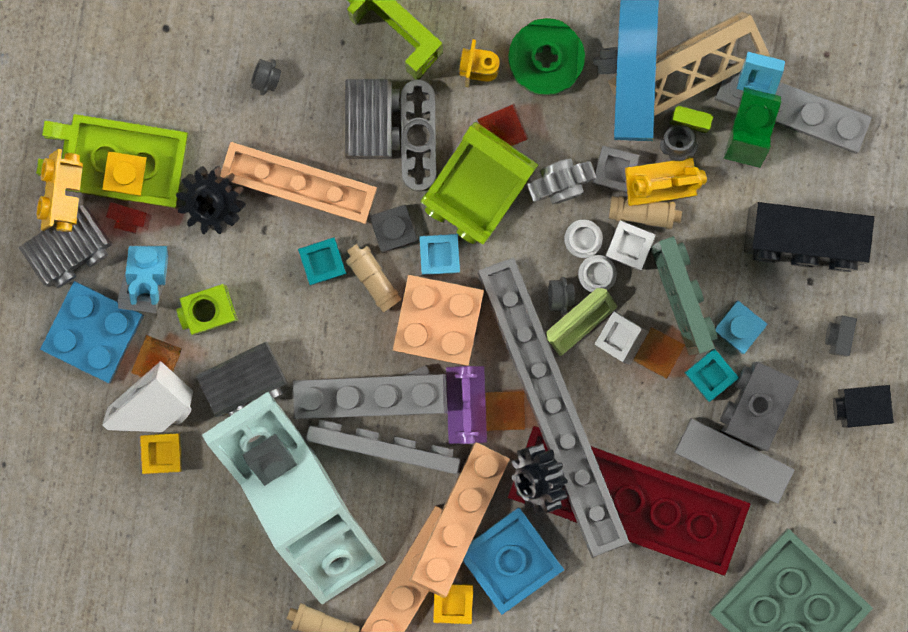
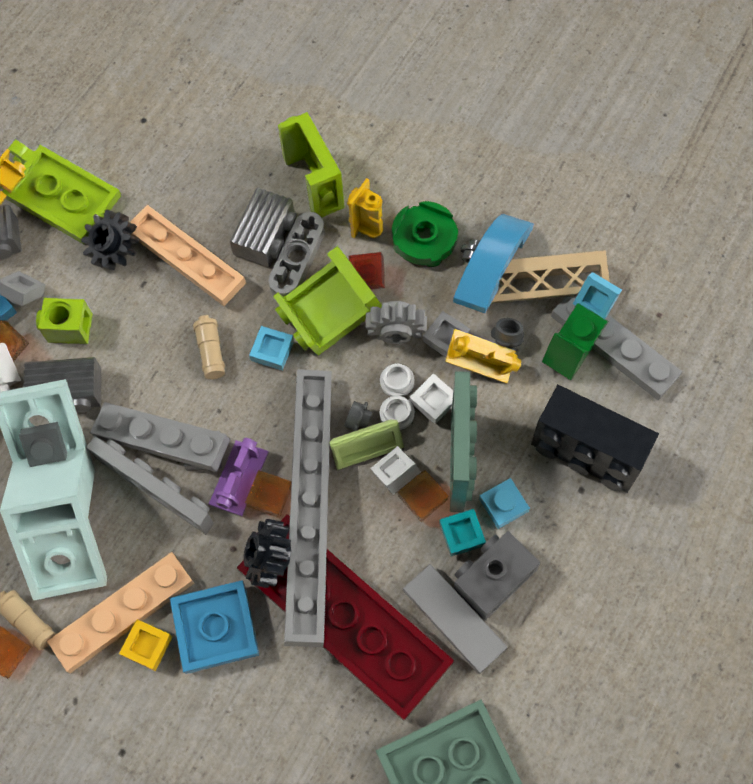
camera: 25 degrees right, 20 degrees down
(124, 173) = (53, 196): yellow plate -> none
(128, 218) = (40, 231): clear red plate -> none
(145, 271) = (31, 271): medium azure plate -> none
(265, 76) = (198, 172): dark grey plate -> none
(322, 261) = (174, 319): teal plate -> none
(393, 228) = (244, 317): dark grey plate -> none
(438, 320) = (245, 396): light nougat brick -> none
(459, 520) = (182, 570): light nougat plate -> none
(653, 214) = (446, 373): tan piece -> none
(691, 118) = (527, 316): lime tile -> none
(840, 335) = (592, 540): dark grey plate -> none
(863, 406) = (593, 612): black brick -> none

